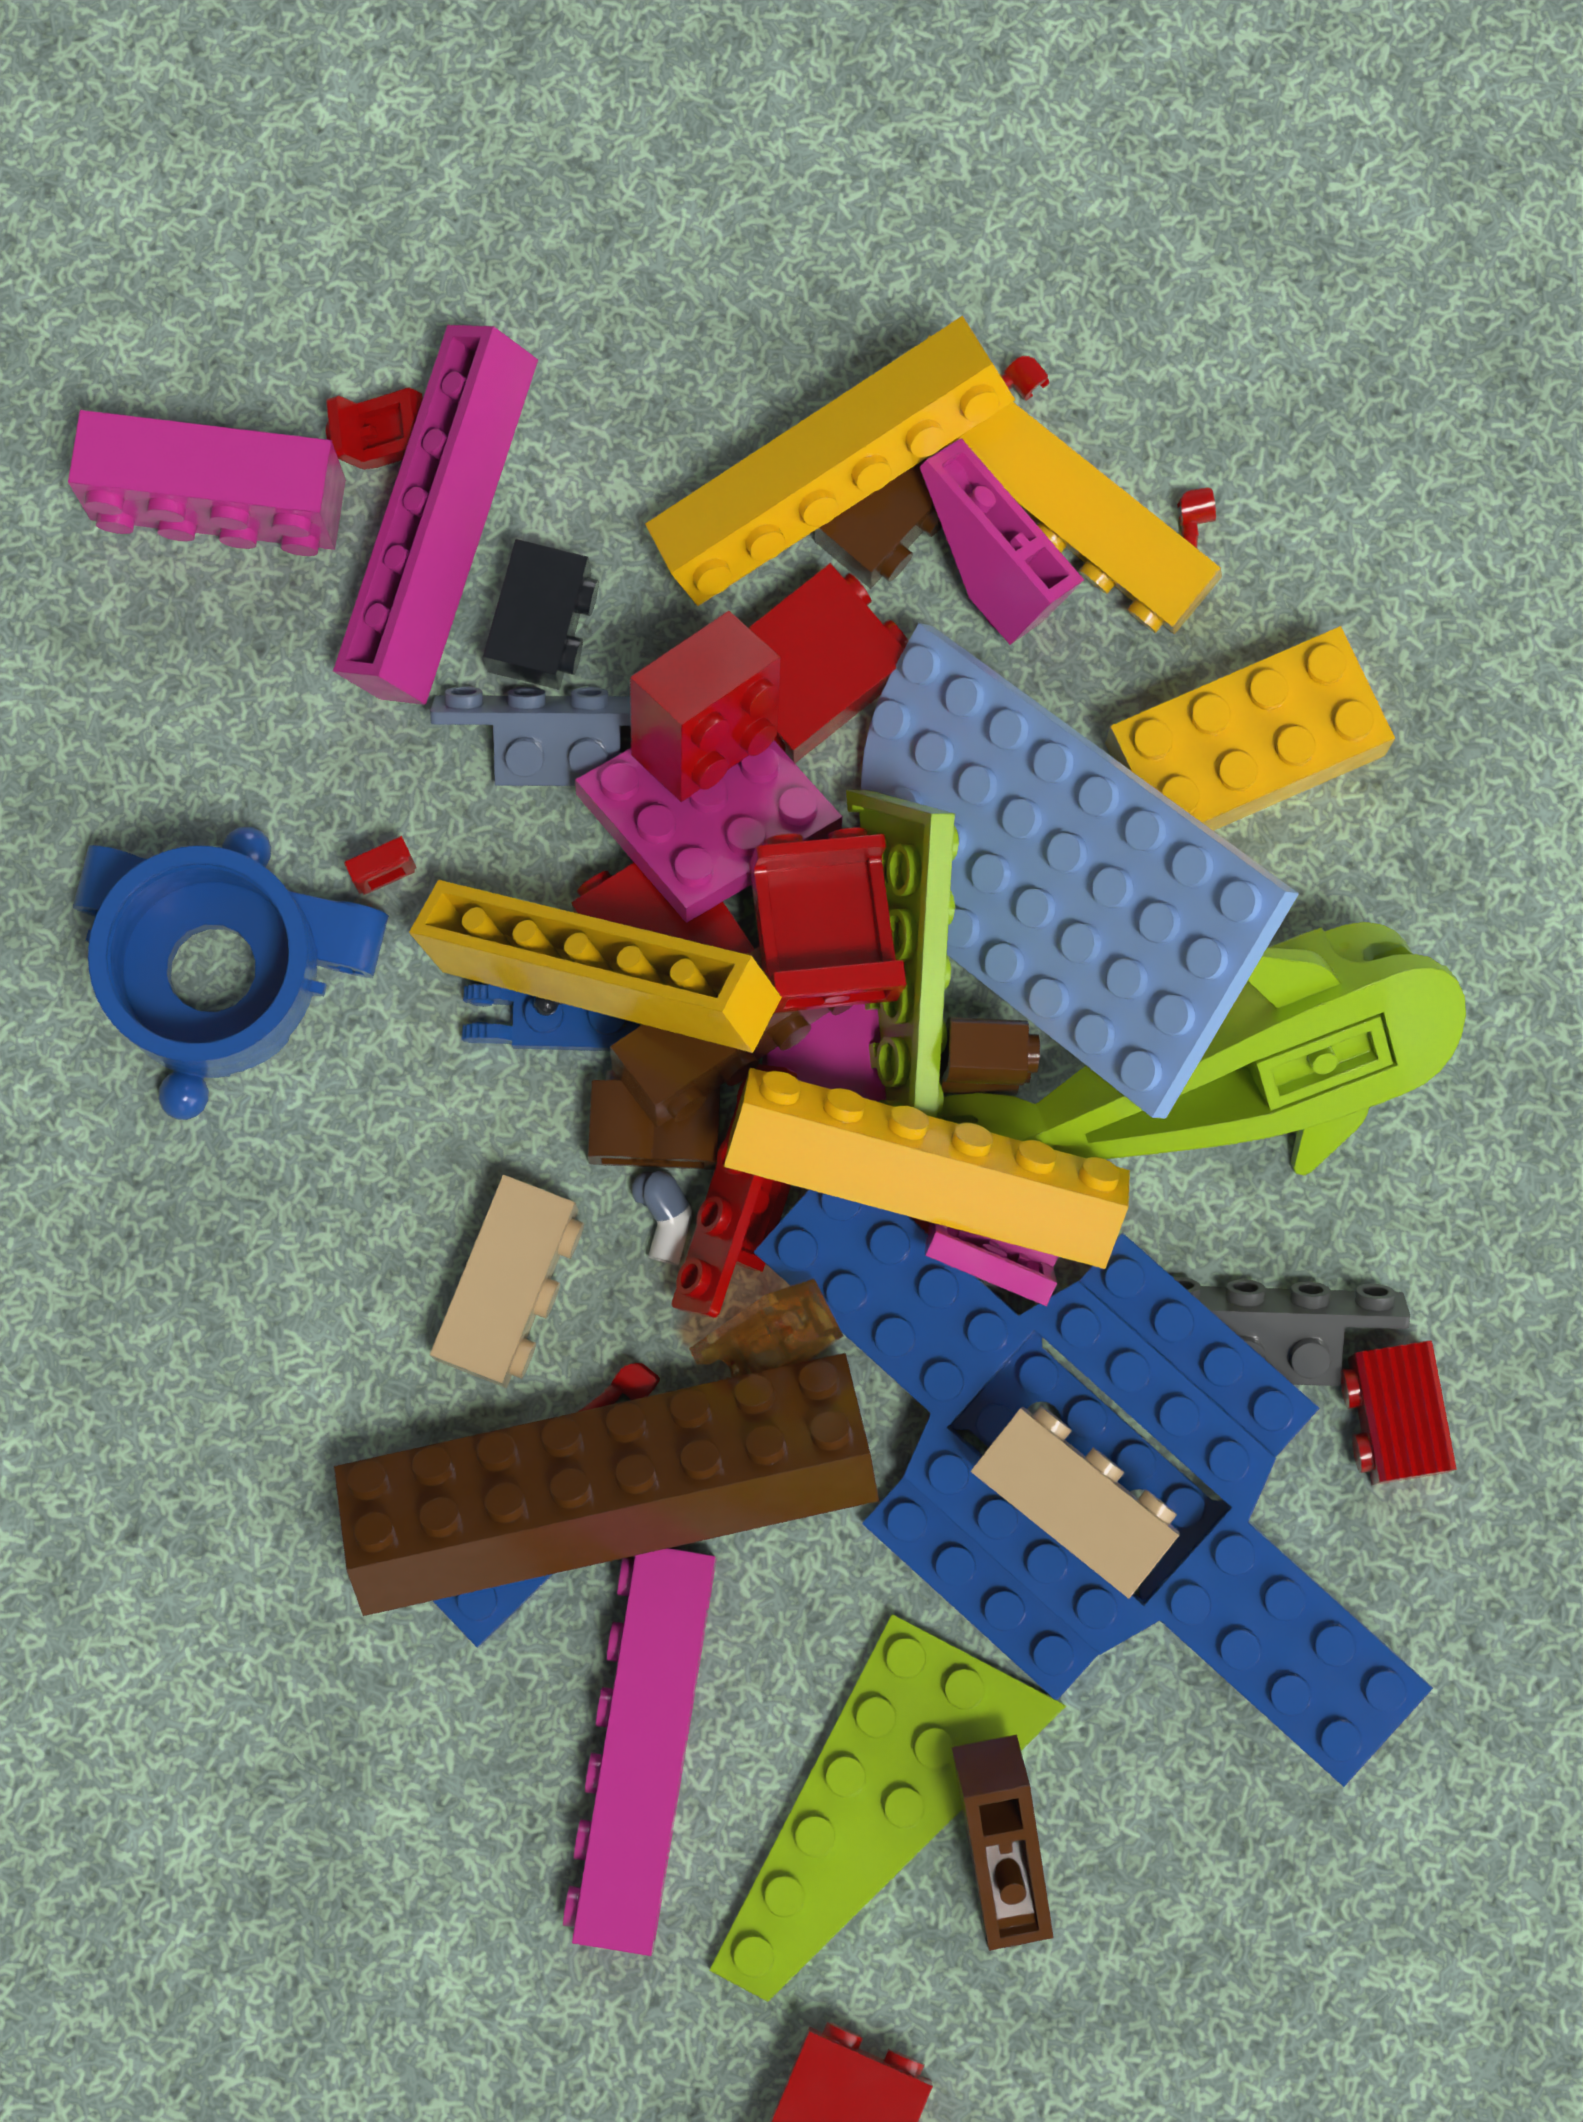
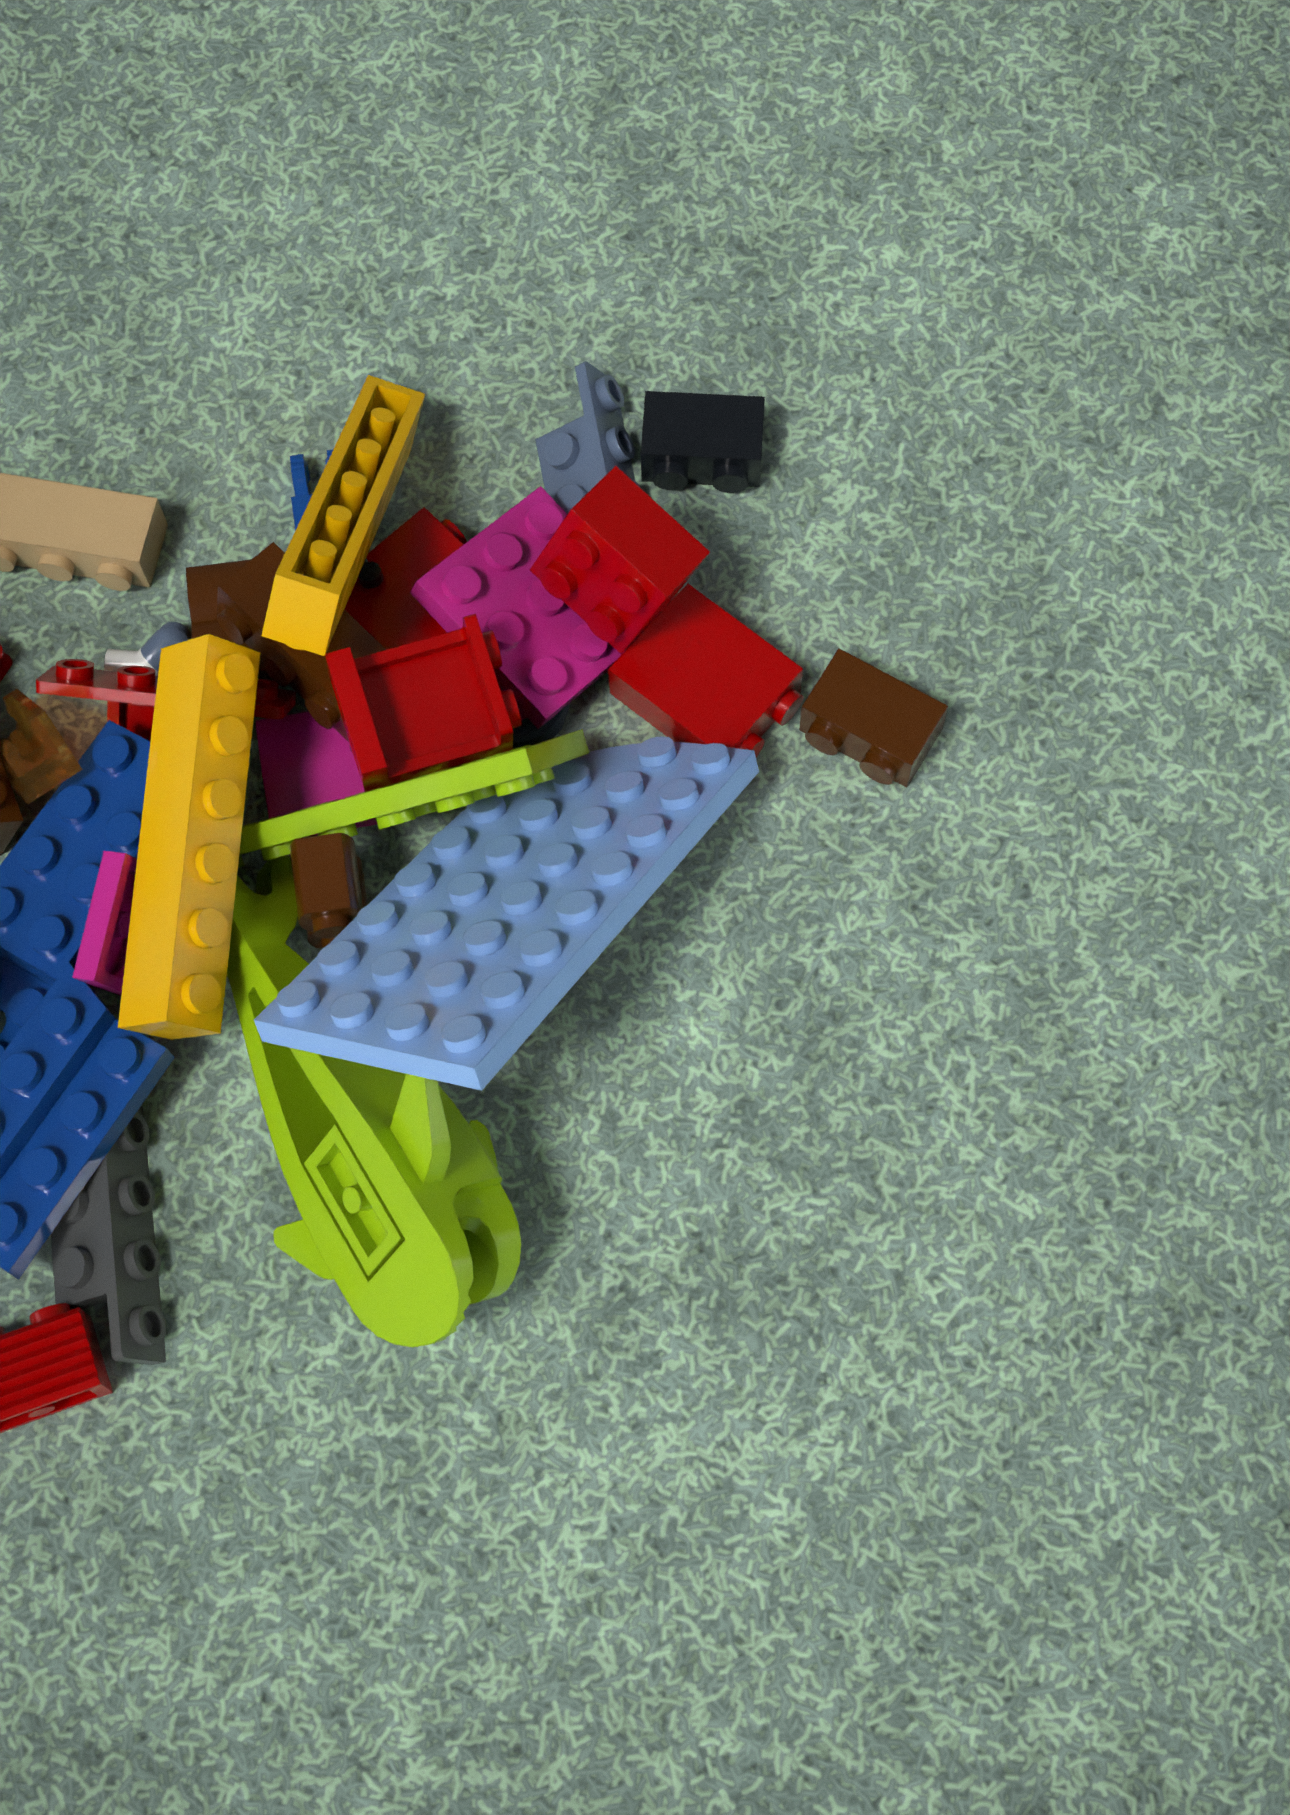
camera: 80 degrees right, 10 degrees down
(160, 902) = (314, 167): blue piece -> none
(207, 482) = (758, 144): dark pink brick -> none
(373, 430) = (848, 275): red bracket -> none
(380, 866) = (438, 357): red tile -> none
(436, 514) = (776, 334): dark pink brick -> none
(829, 461) = (904, 644): yellow brick -> none
(998, 549) = (859, 813): dark pink slope -> none
(1025, 376) = (1049, 823): red hand -> none
(1095, 520) = (933, 868): yellow brick -> none
(1196, 508) = (947, 1010): red hand -> none
(1258, 732) = (710, 1100): yellow brick -> none

